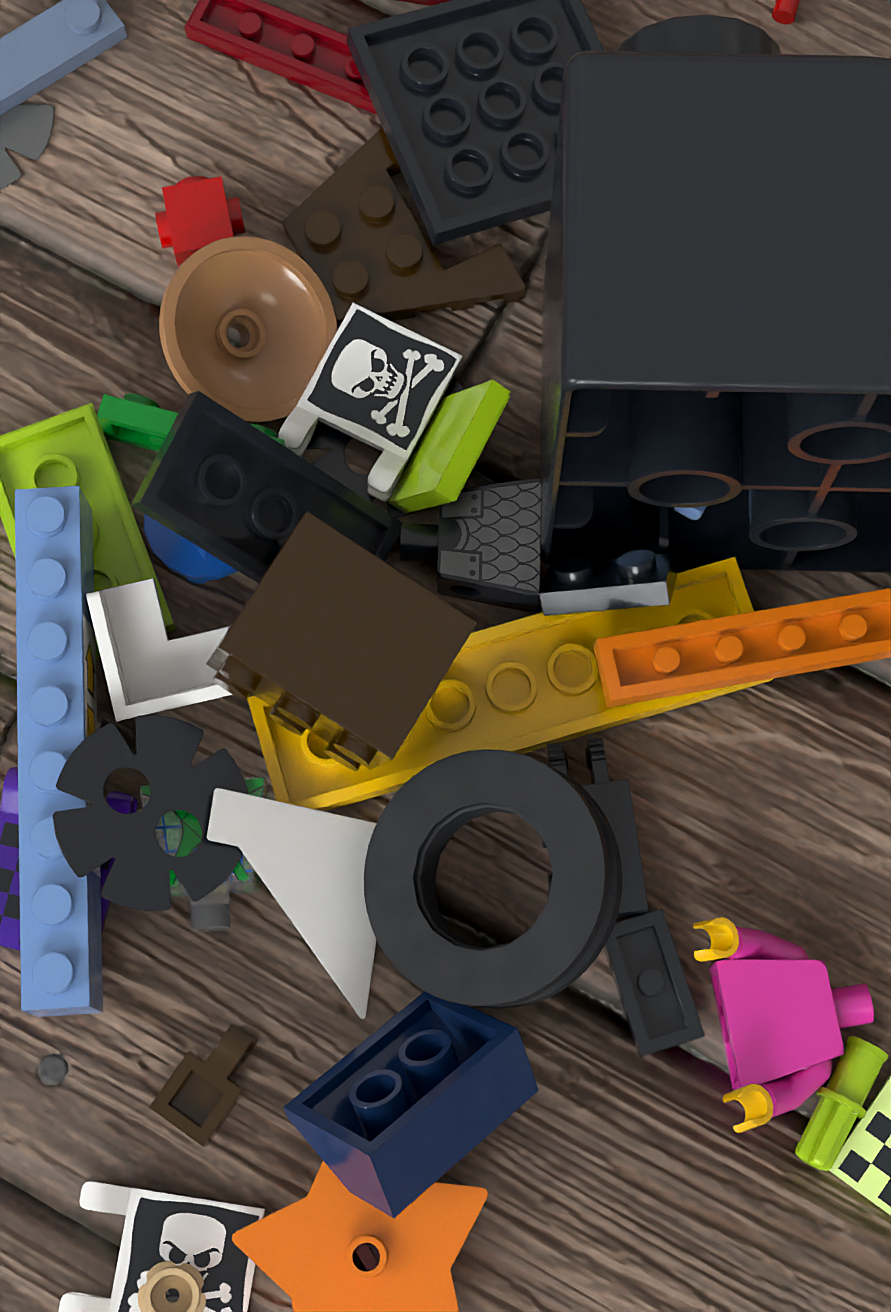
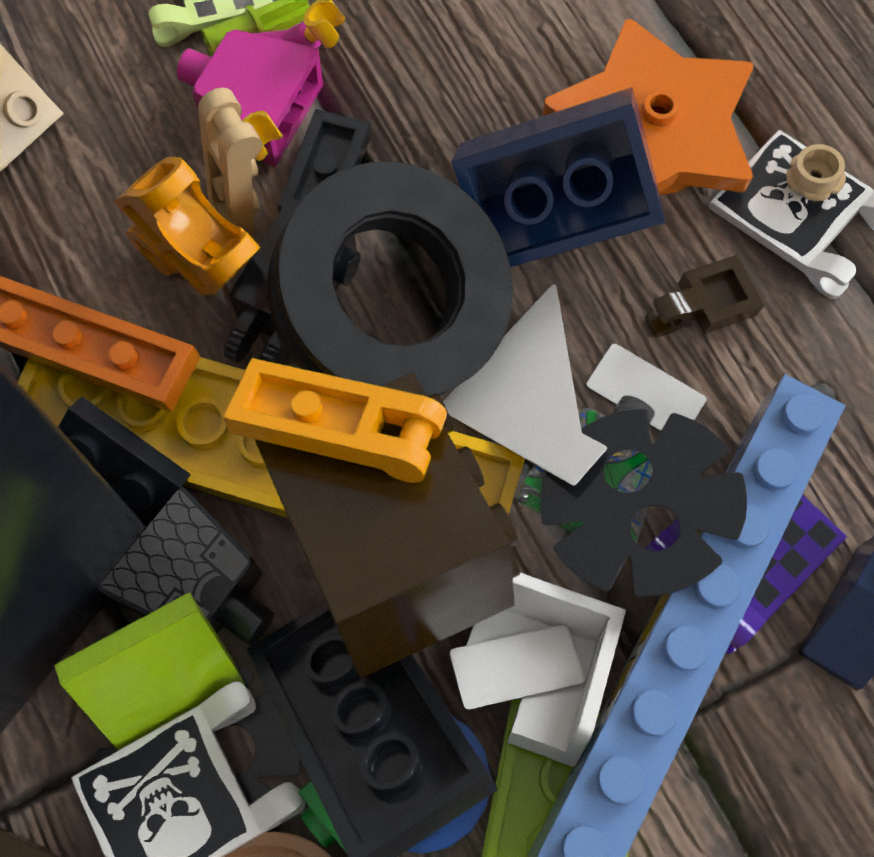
camera: 150 degrees left, 5 degrees down
(179, 634) = (516, 666): none -> white sticker
(215, 965) = (626, 374): none -> white sticker
(421, 663) = (335, 418): none -> light orange plate
(710, 886) = (229, 158): none -> tan plate
(715, 803) = (182, 230): none -> light orange piece

